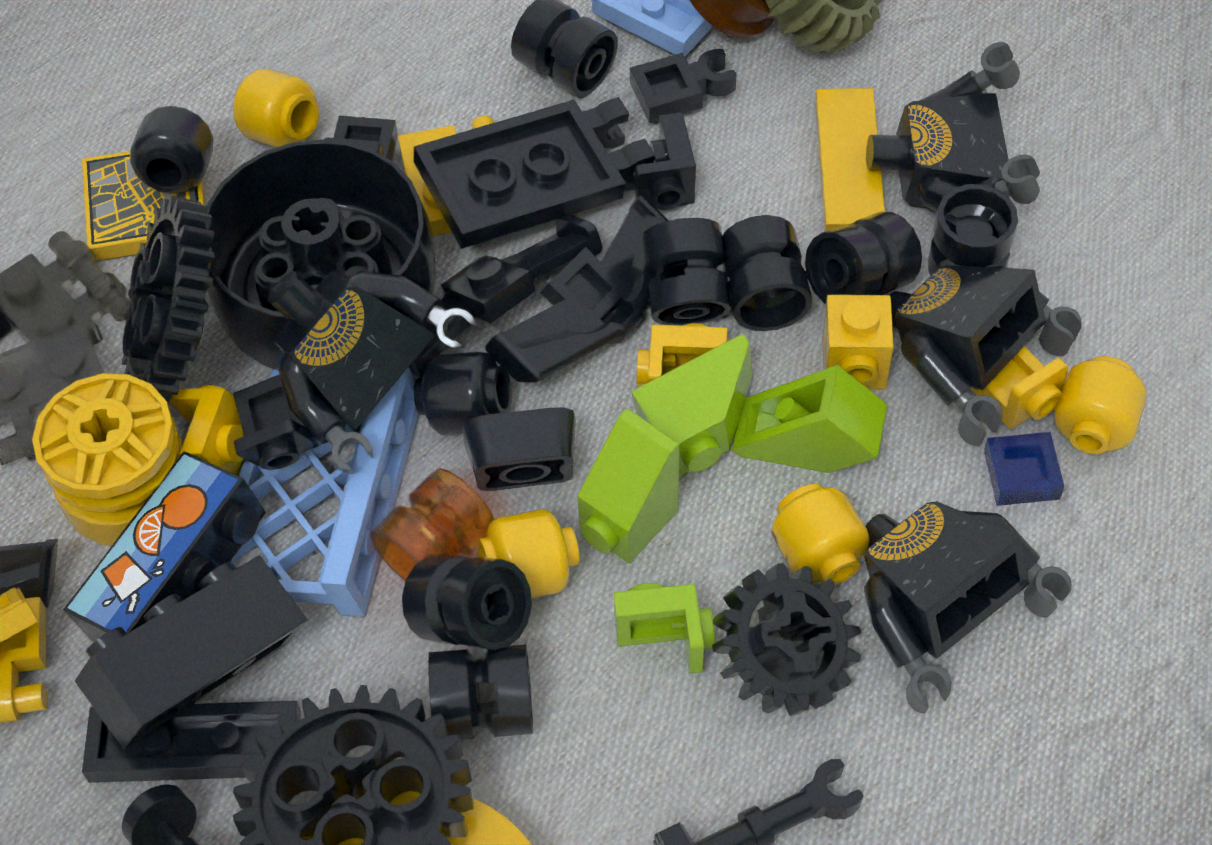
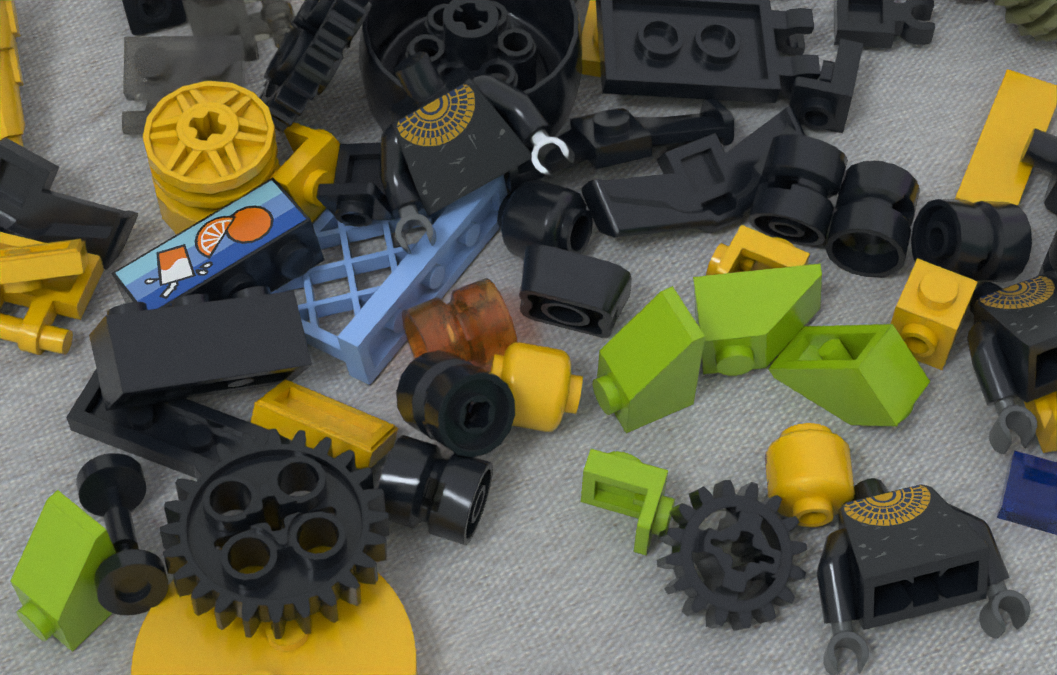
camera: 20 degrees right, 0 degrees up
(314, 670) = (297, 408): none -> yellow tile

